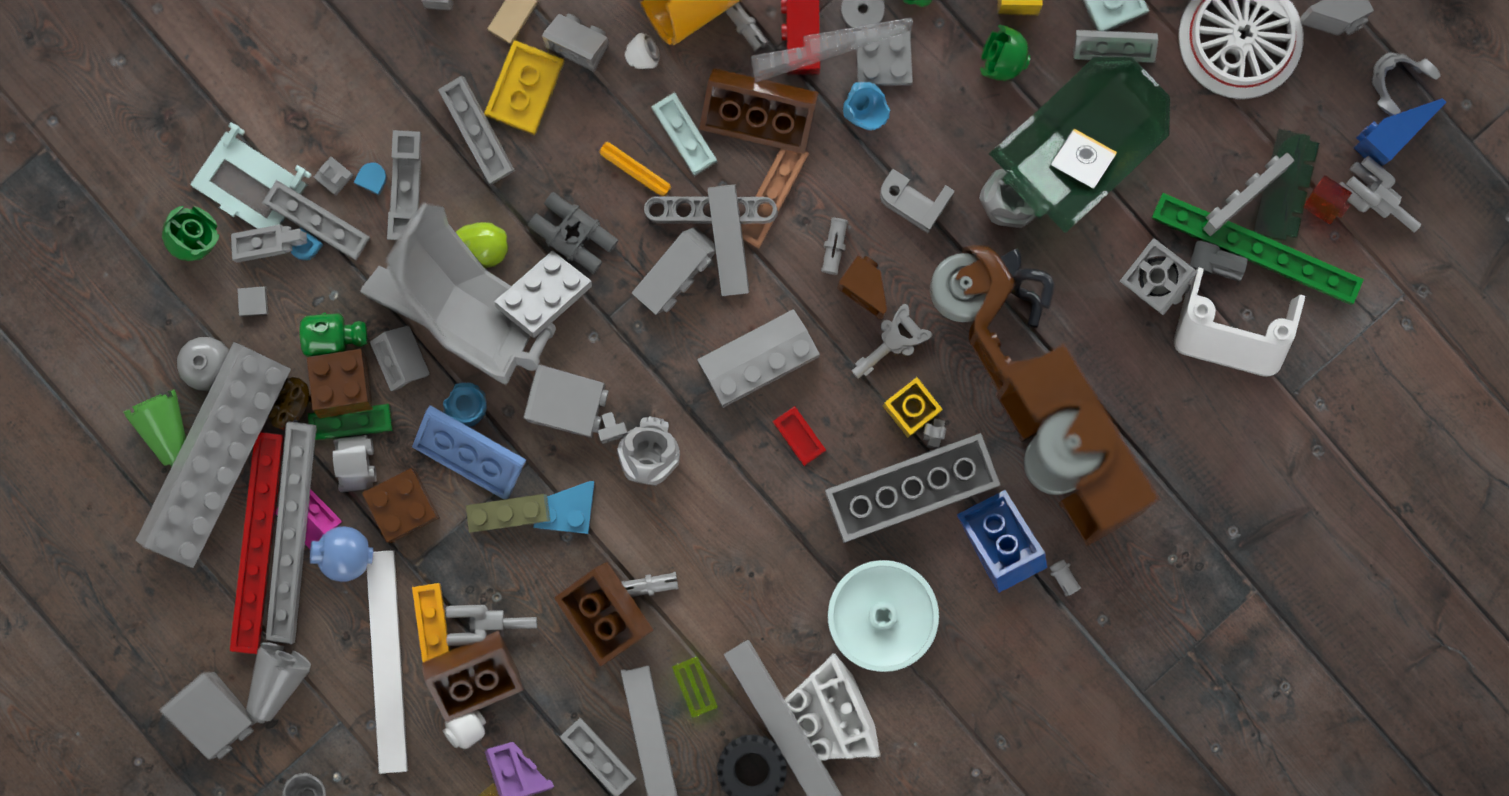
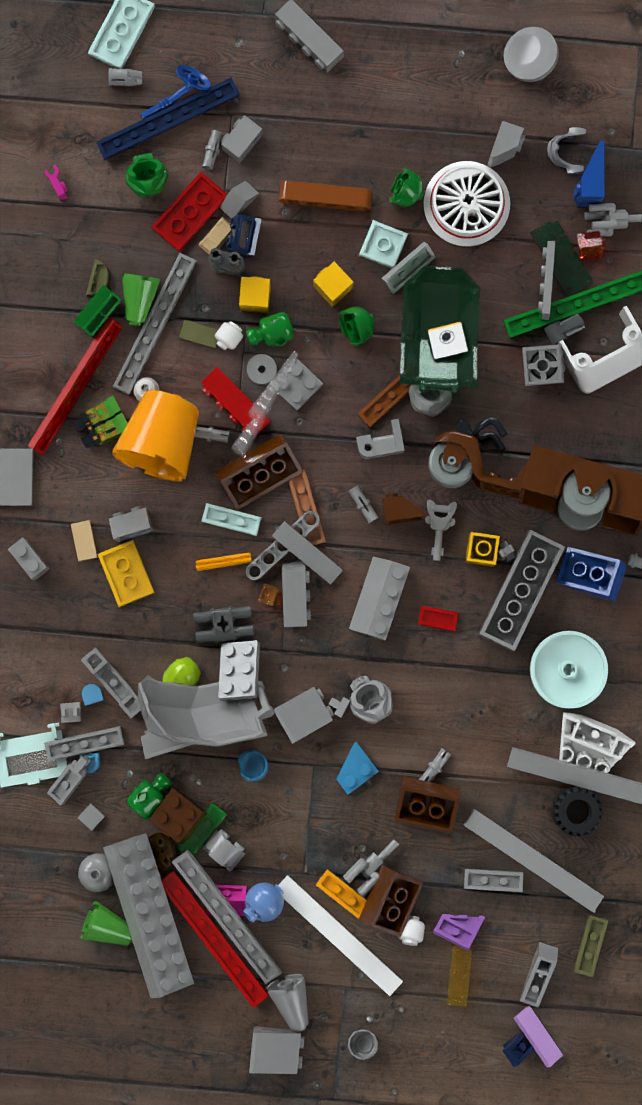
camera: 40 degrees left, 0 degrees up
(189, 233) = (26, 813): green cylinder -> none
(399, 357) = (195, 773): light grey panel -> none
(401, 505) = (269, 848): reddish brown brick -> none
(468, 453) = (278, 788): medium blue tile -> none
(476, 130) = (123, 618): light grey plate -> none
(508, 513) = (328, 800): olive plate -> none
(642, 52) = (170, 498): white cone -> none
(647, 246) = (269, 594): none -> clear orange tile
(703, 708) = (492, 790): clear neon green tile -> none
(866, 106) = (312, 417): dark azure hair -> none
(955, 161) = (384, 402): none -> dark orange tile

